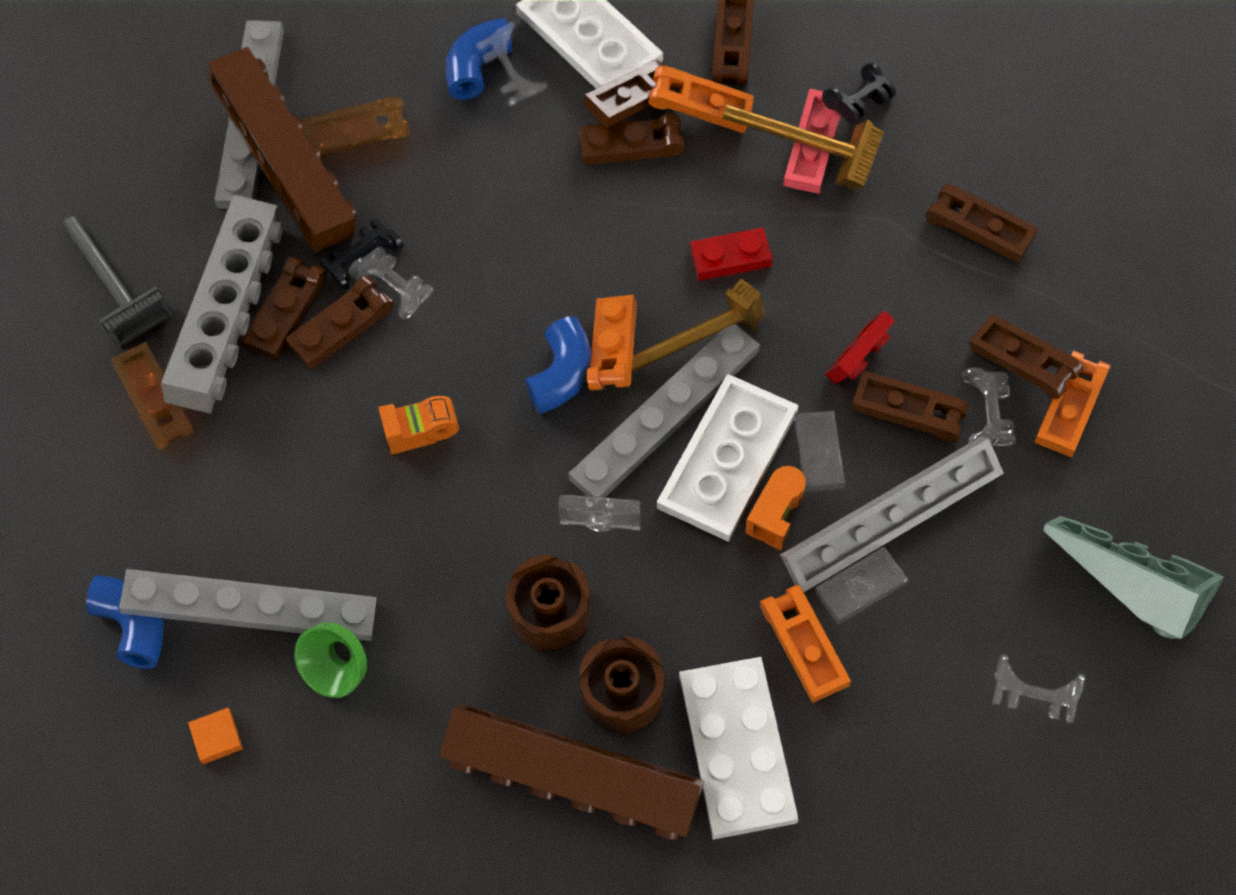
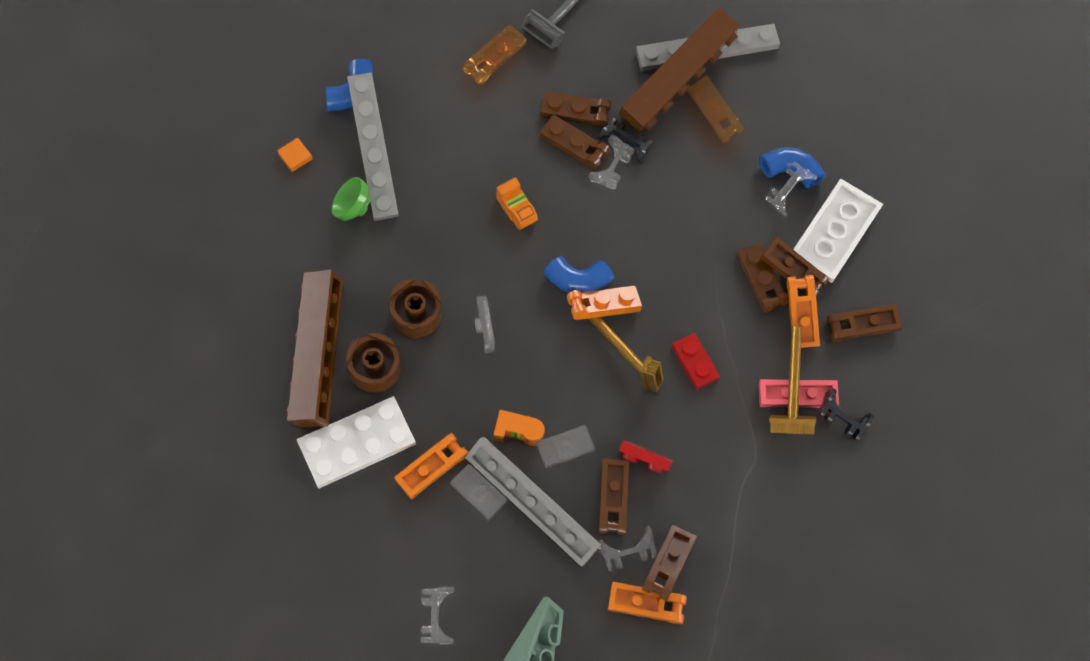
camera: 65 degrees right, 5 degrees up
(243, 222) = (622, 64): light grey brick -> none
(663, 412) = (568, 347): light grey plate -> none
(727, 457) = (545, 391): white plate -> none
(982, 222) = (768, 519): reddish brown plate -> none

